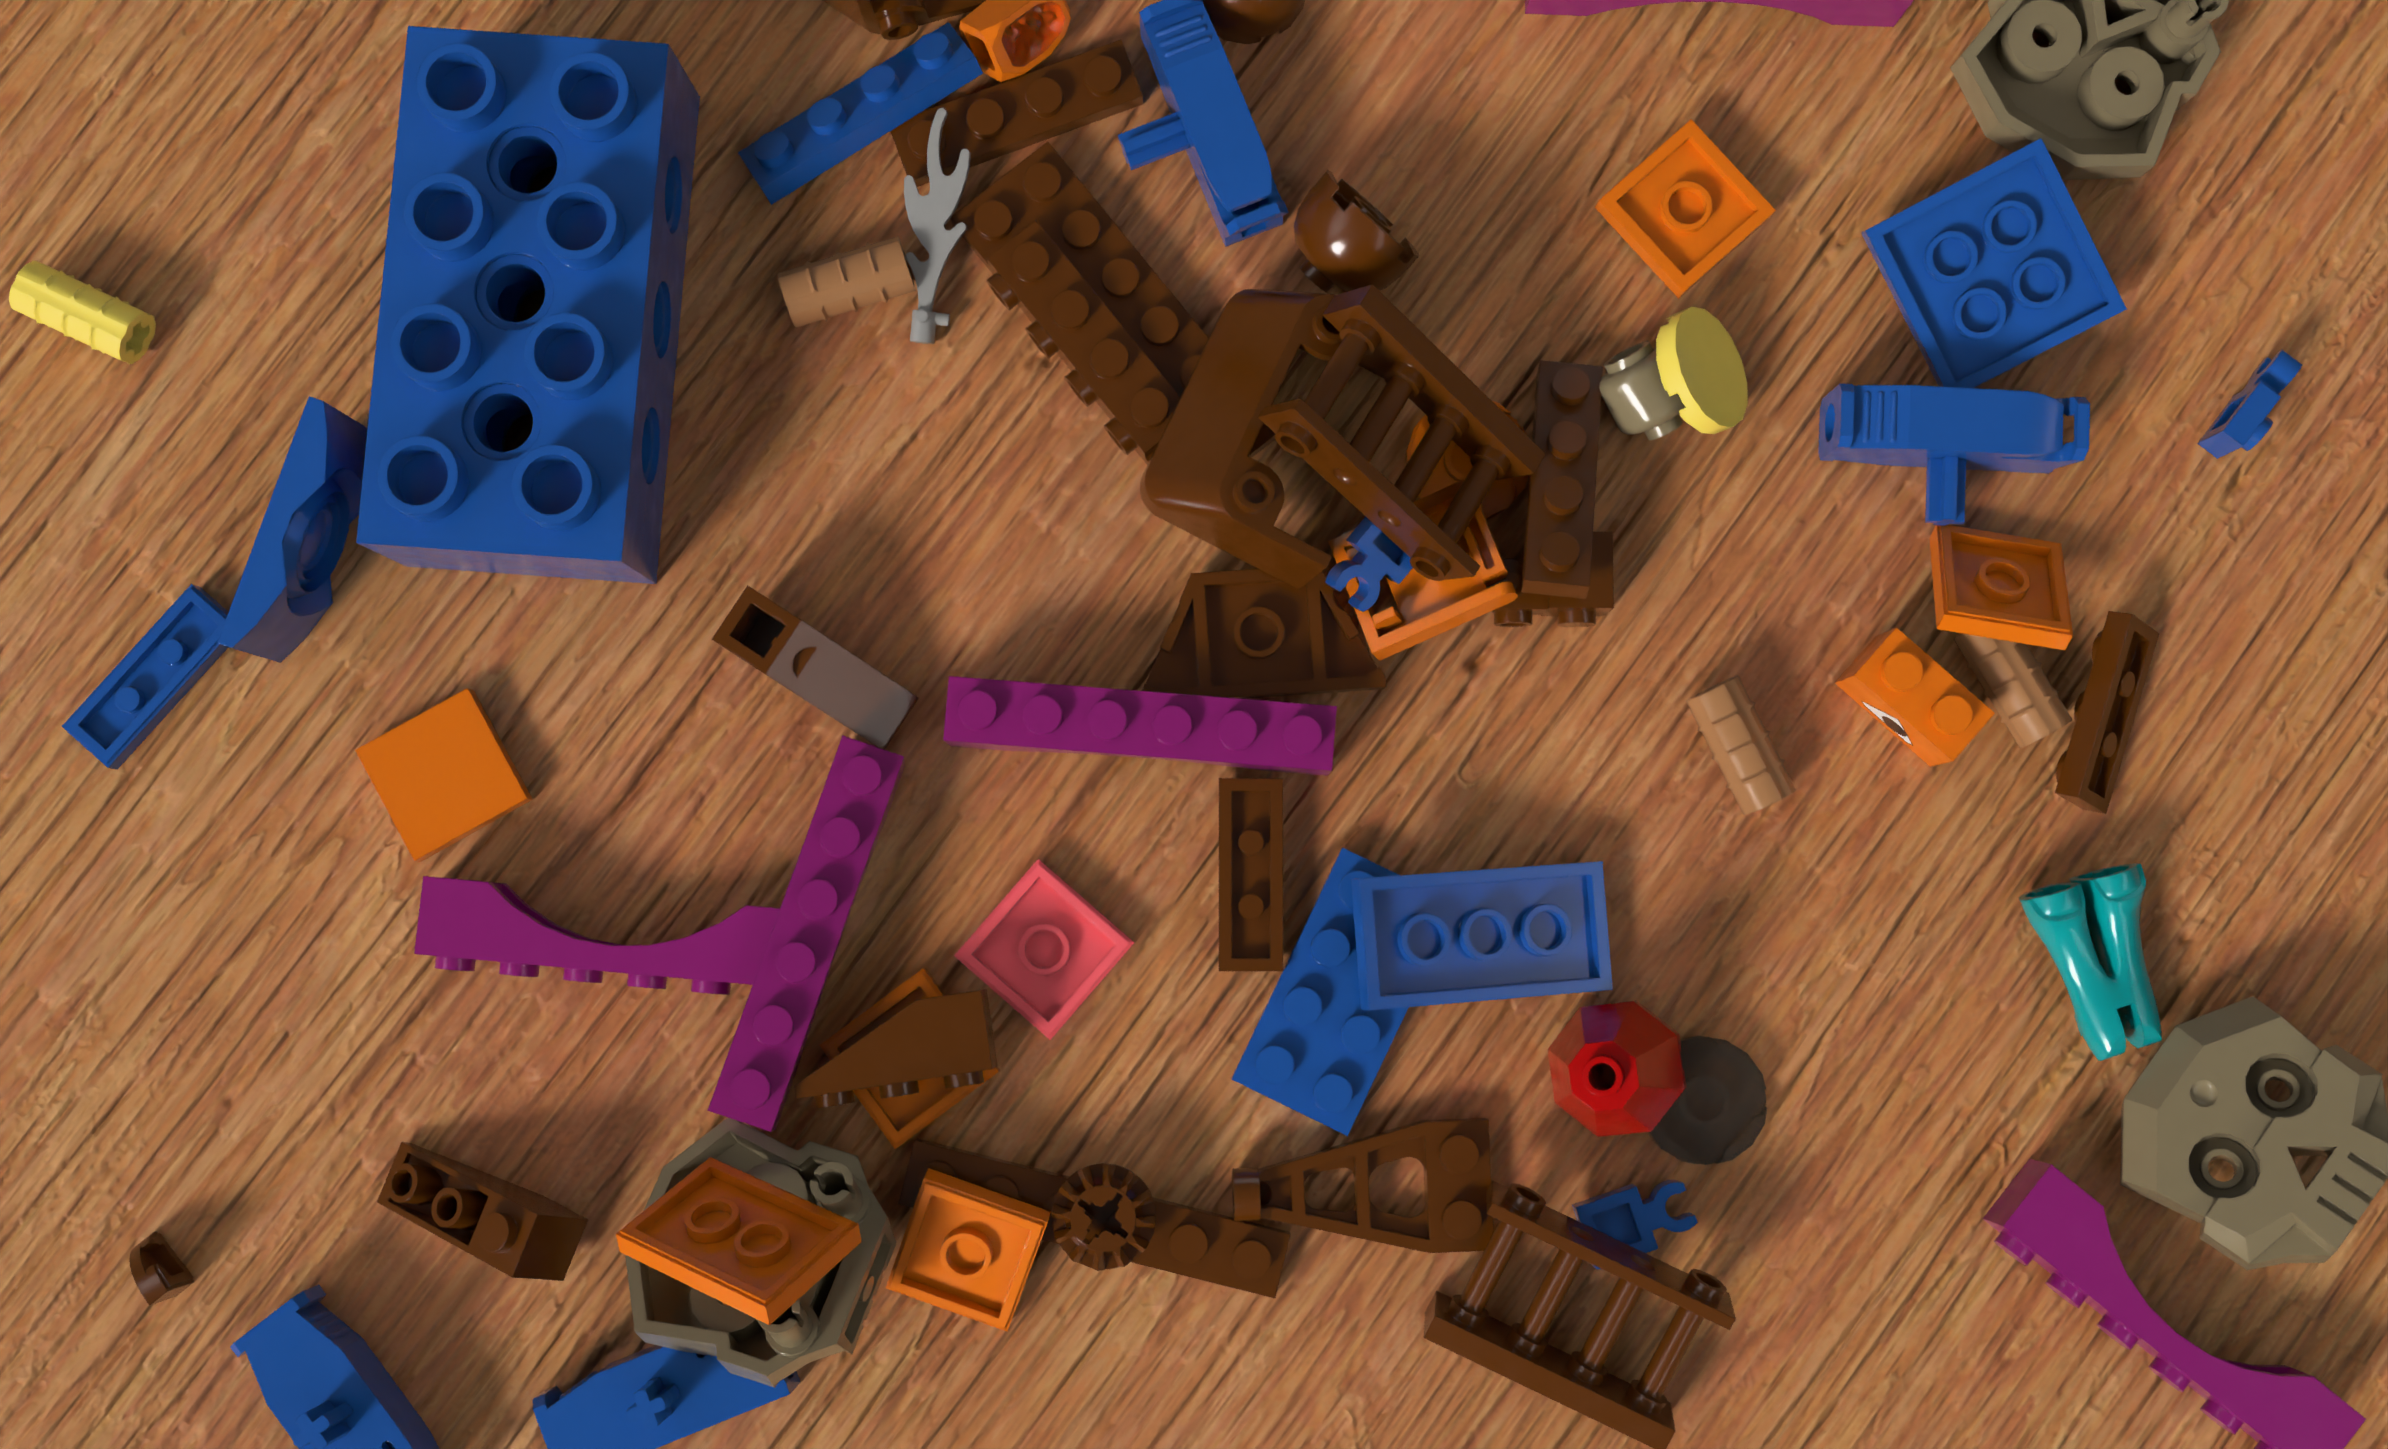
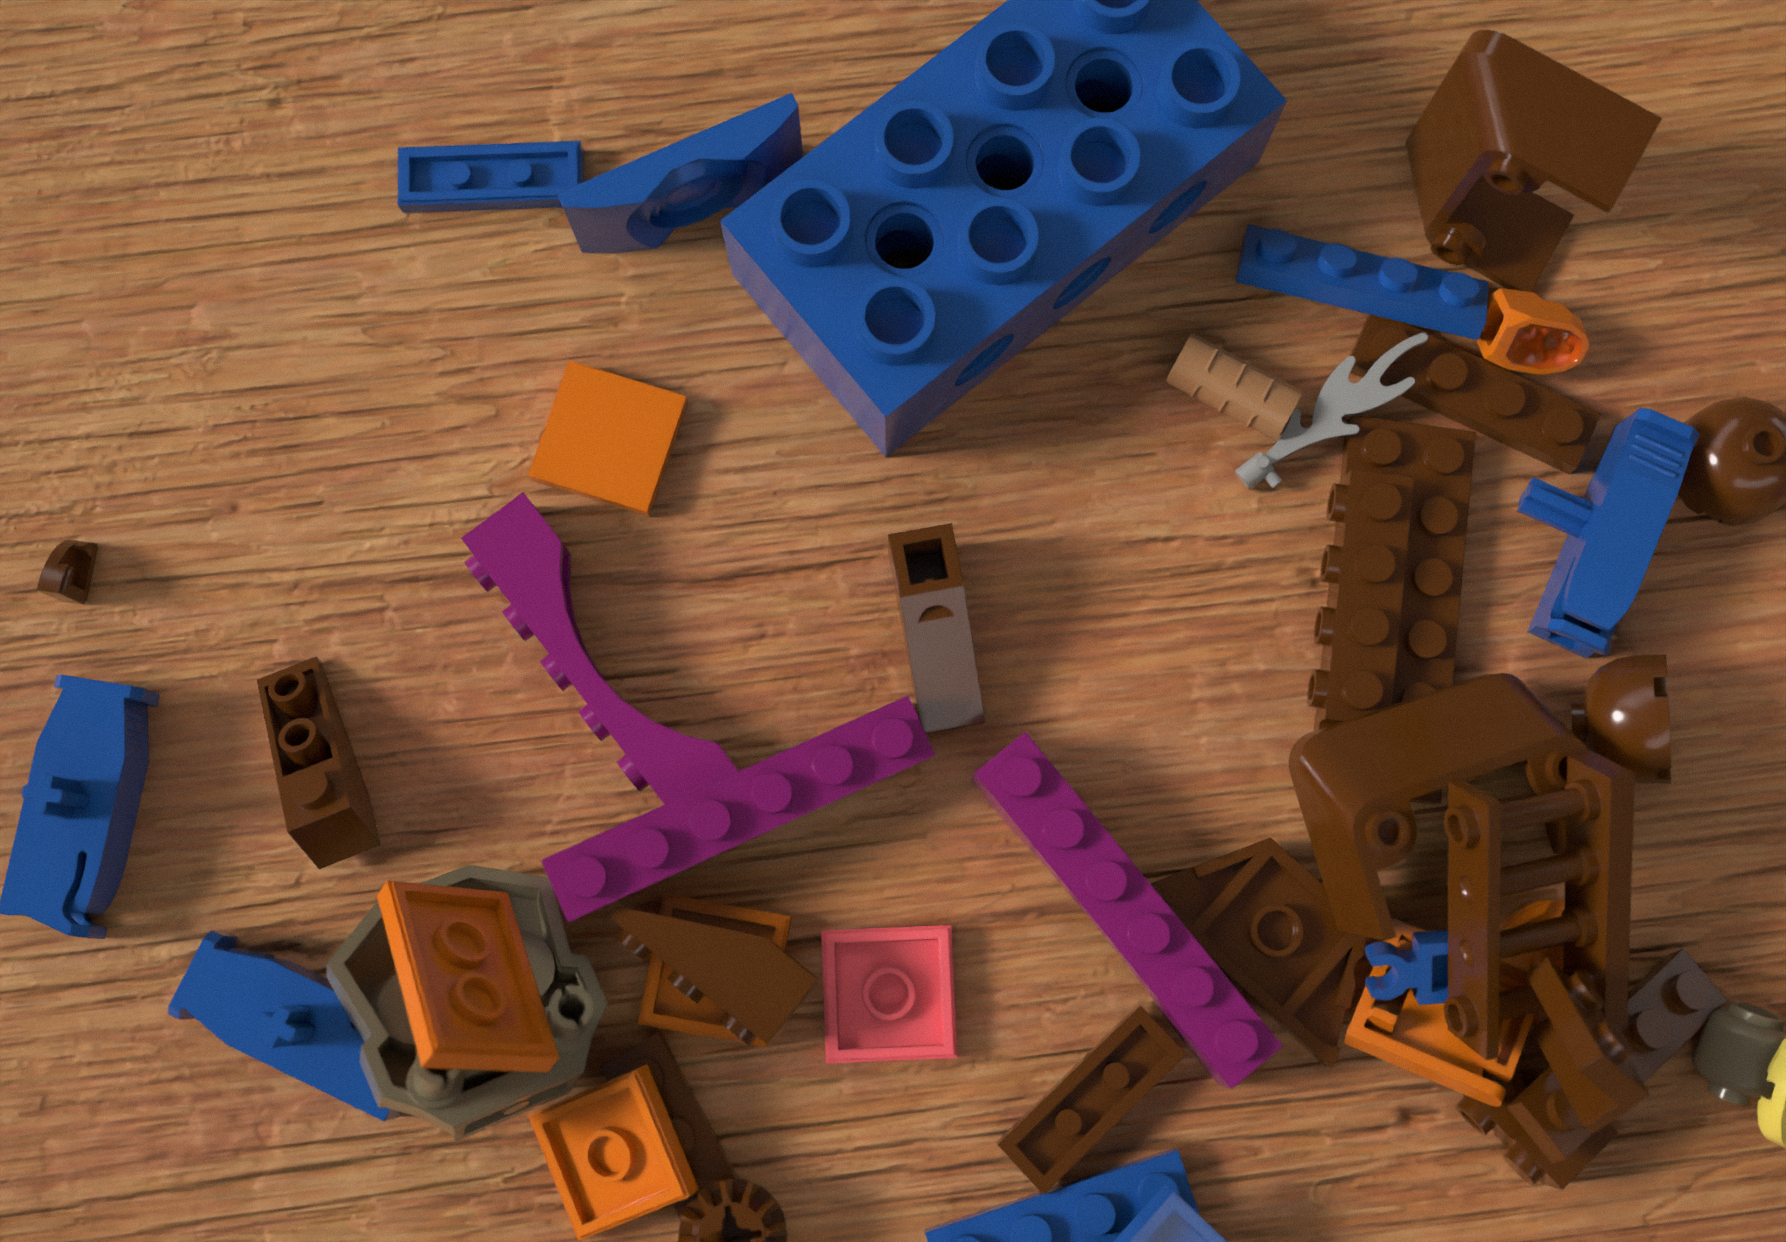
camera: 45 degrees right, 5 degrees down
(1523, 500) = (1584, 1047): none -> reddish brown bracket

